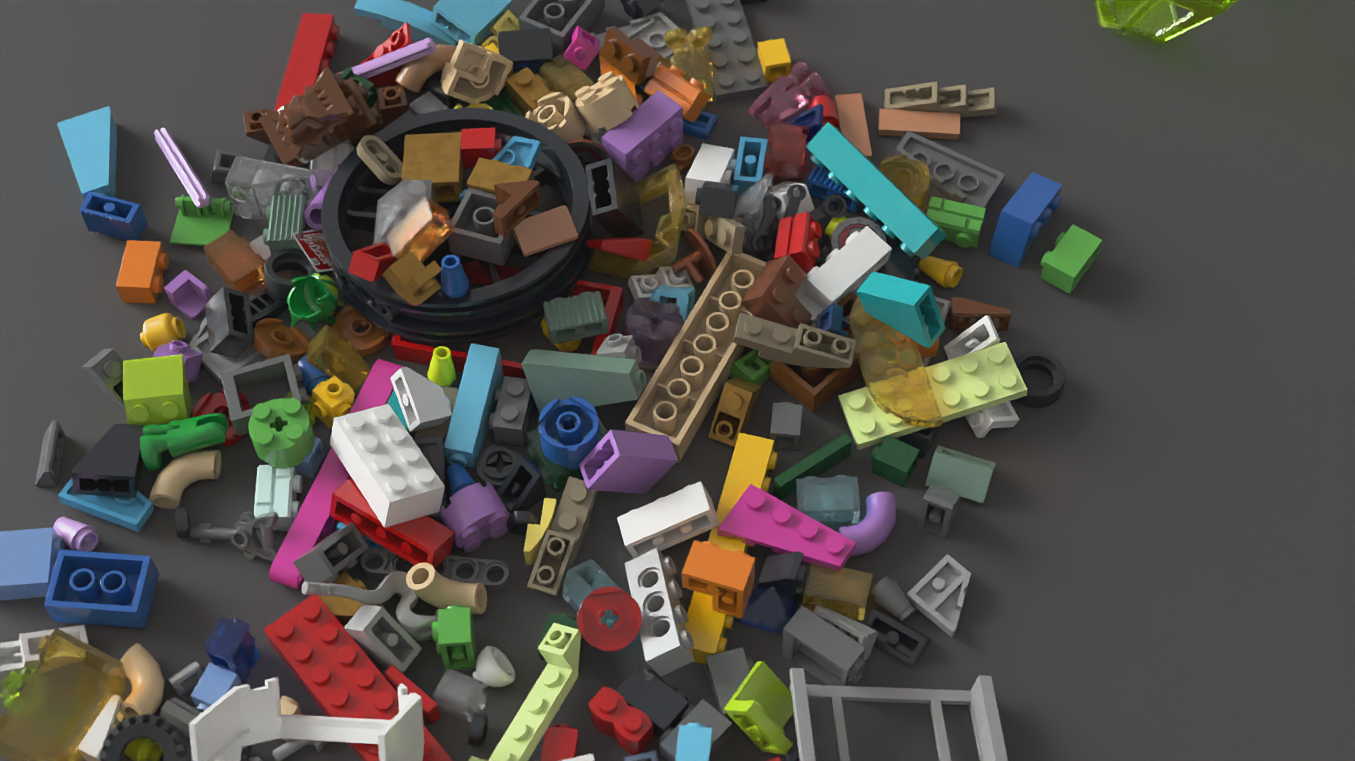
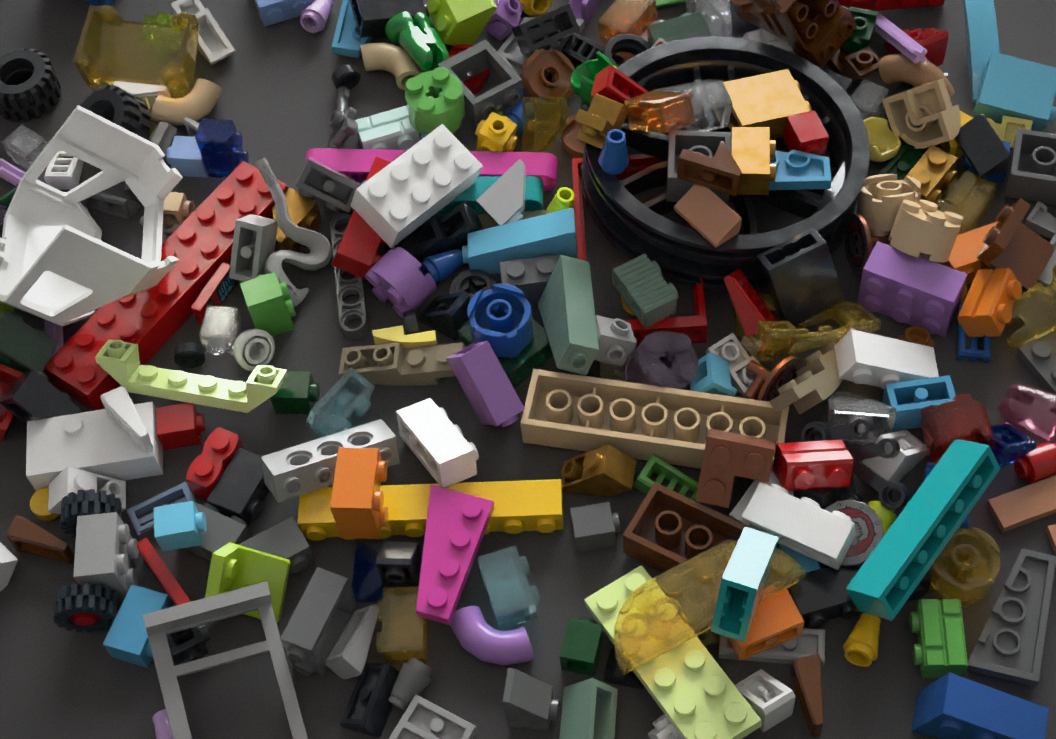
camera: 80 degrees right, 0 degrees up
(102, 589) = (263, 46): blue brick -> none
(380, 159) = (751, 63): dark tan plate -> none
(445, 592) = (317, 284): tan cylinder -> none
(582, 49) = (1008, 194): dark pink bracket -> none
(620, 604) = (312, 417): red plate -> none
(717, 199) = (834, 367): black brick -> none
(799, 346) = (672, 491): dark tan slope -> none
(813, 465) = (550, 565): dark green tile -> none
(832, 320) = (712, 522): dark blue tile -> none

